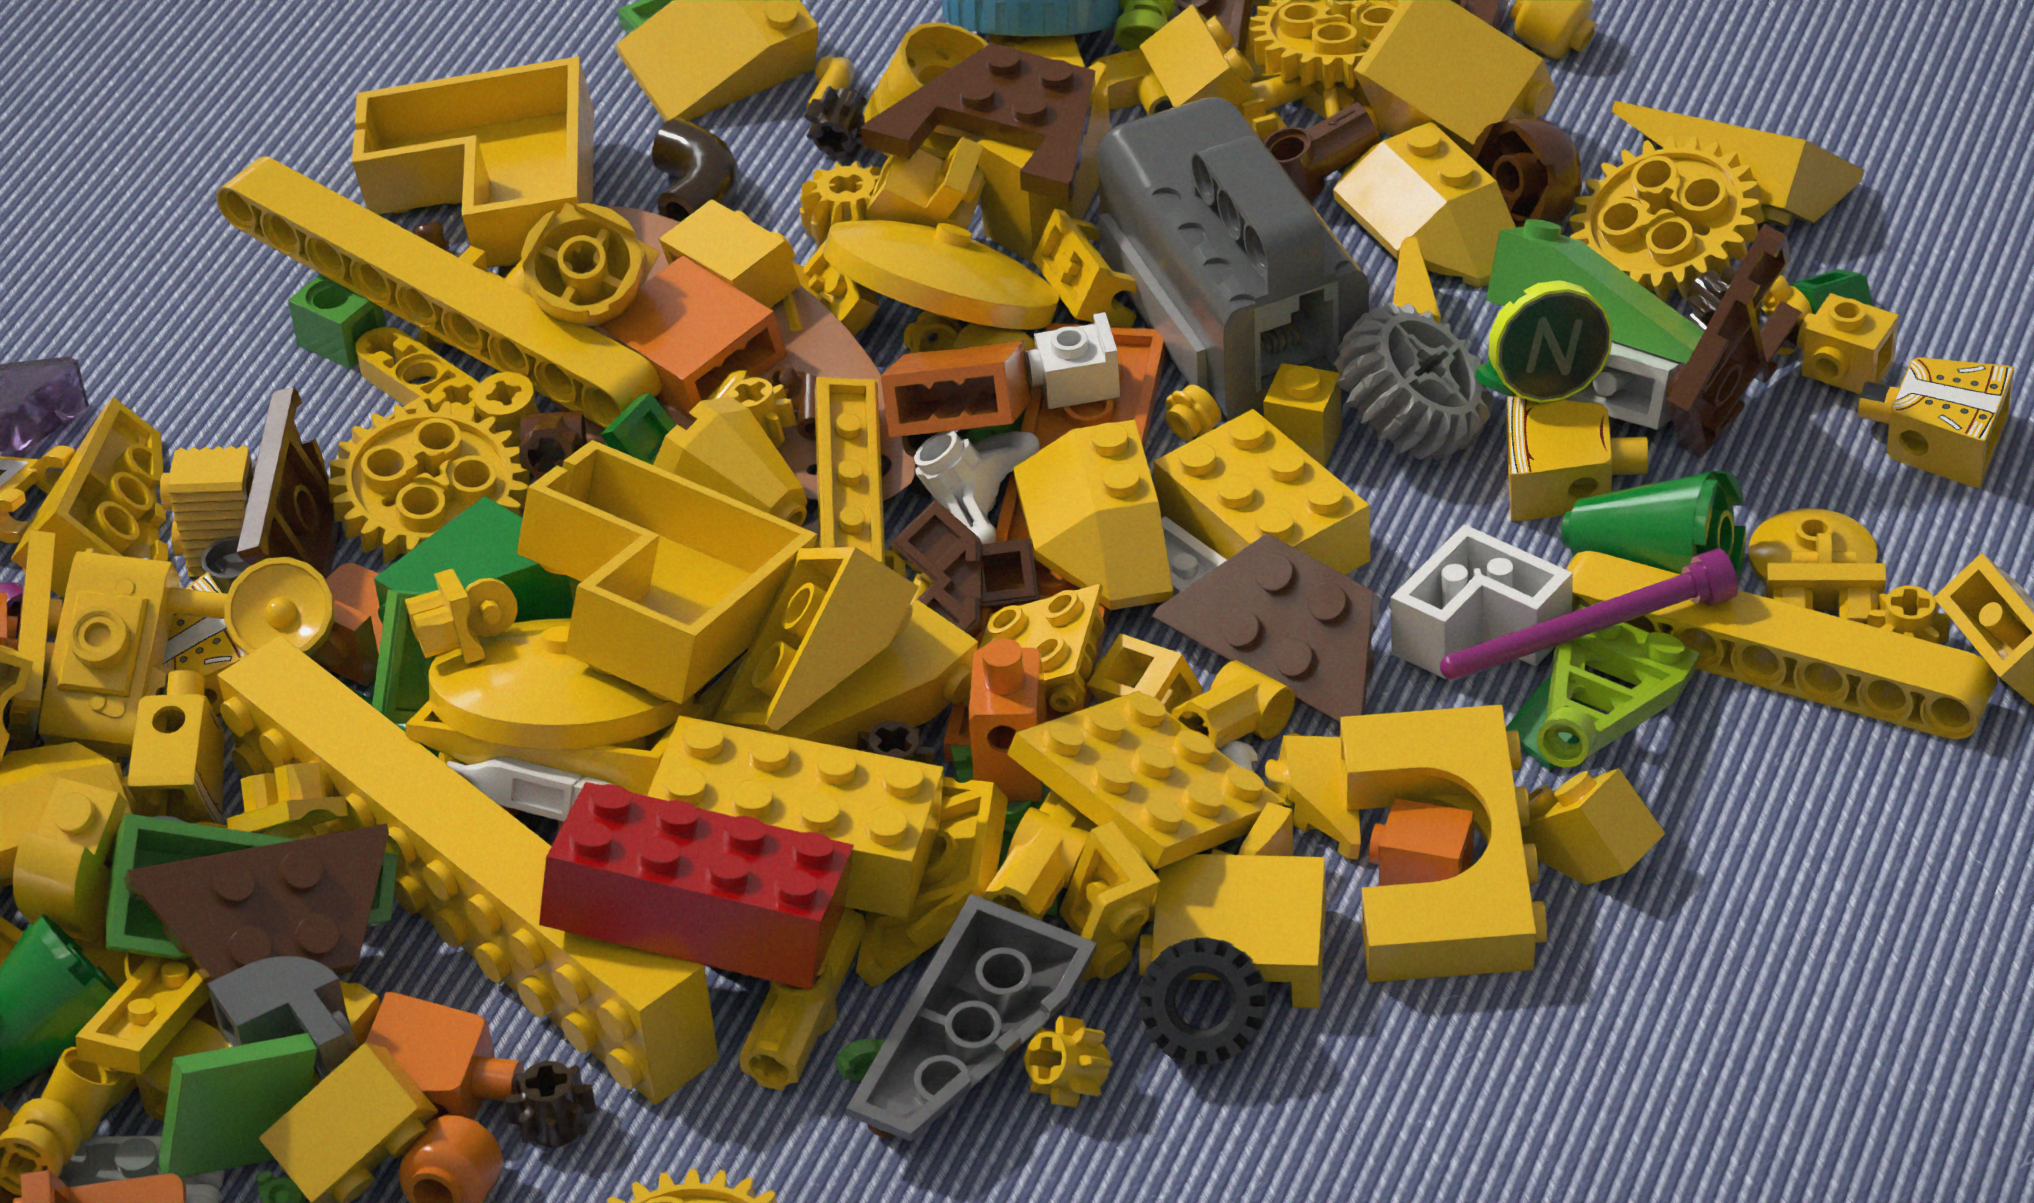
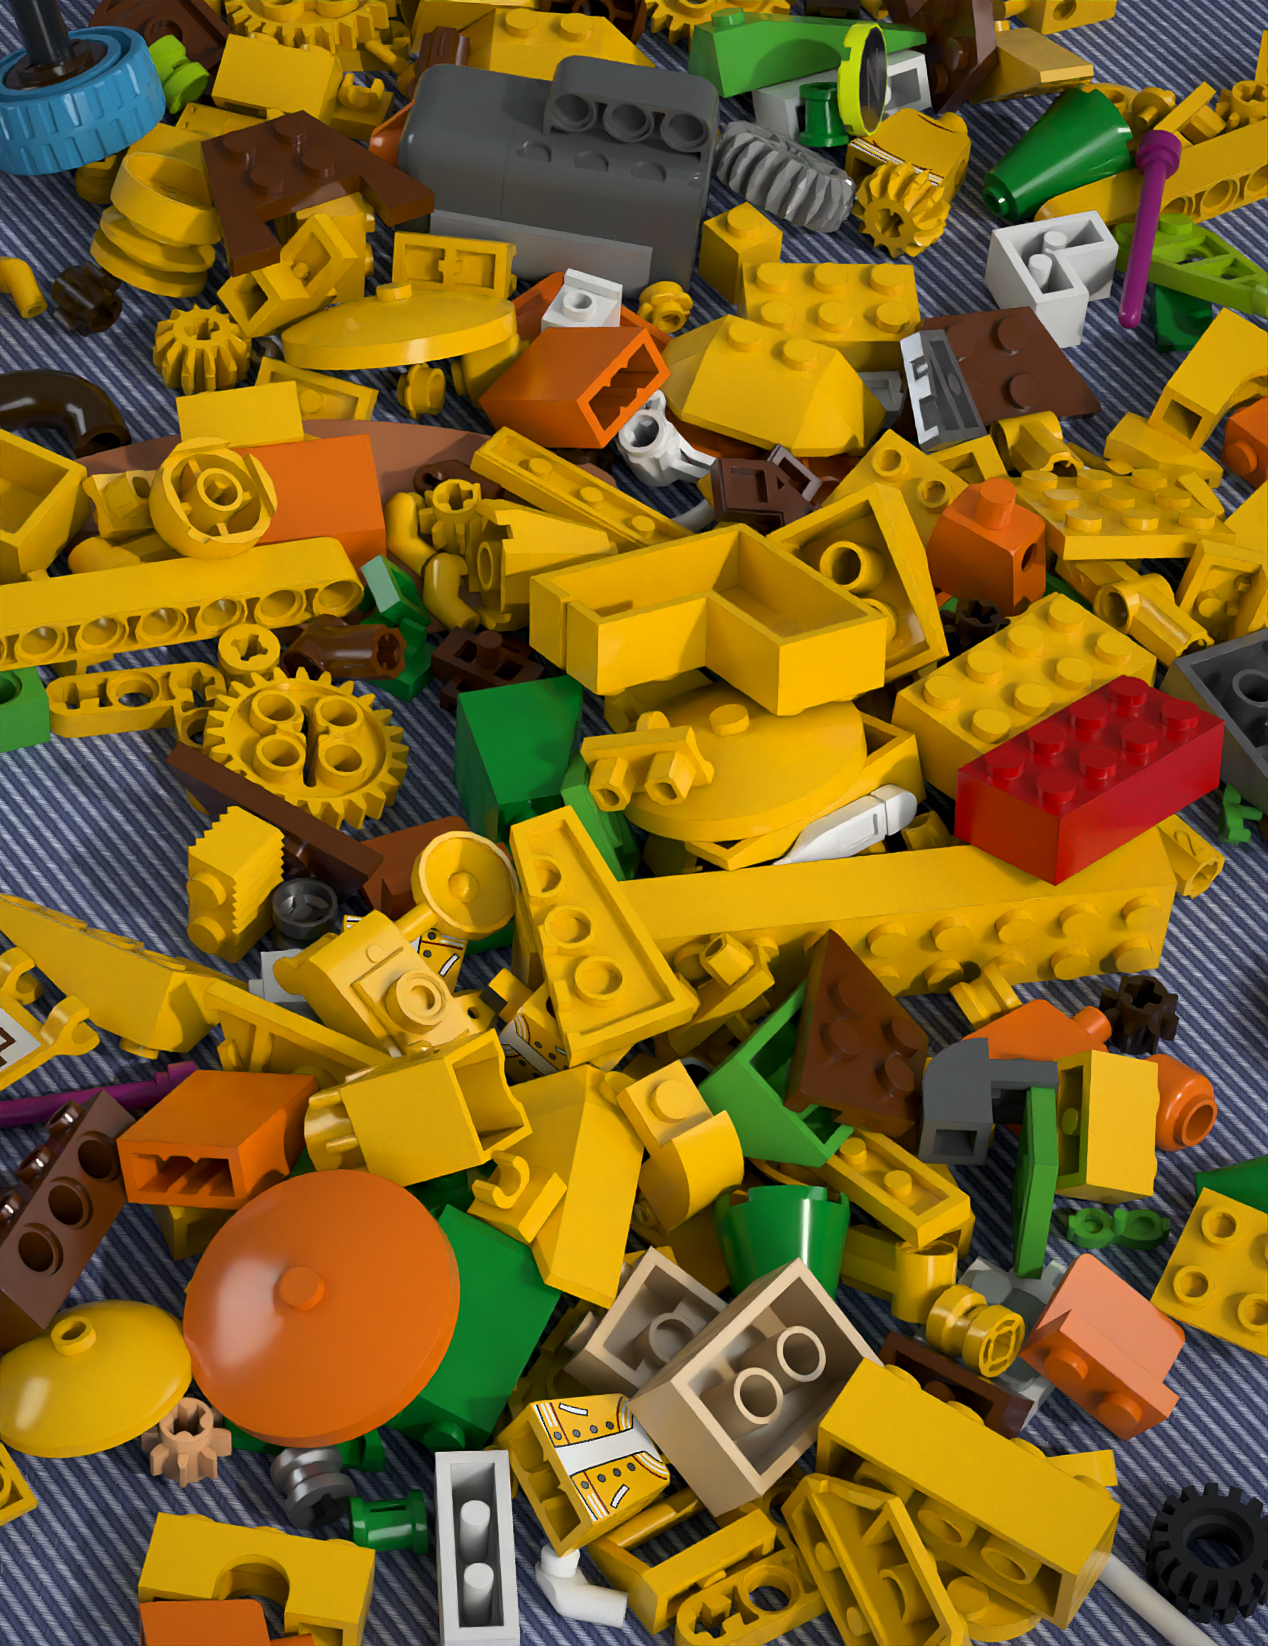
camera: 65 degrees left, 5 degrees up
(237, 691) = (593, 948): none -> yellow wing
(500, 997) = (986, 996): none -> yellow wheel
(1183, 593) = (938, 392): none -> flat silver wing
(1465, 471) = (901, 209): none -> yellow gear
(1745, 435) = (1030, 67): none -> yellow wedge

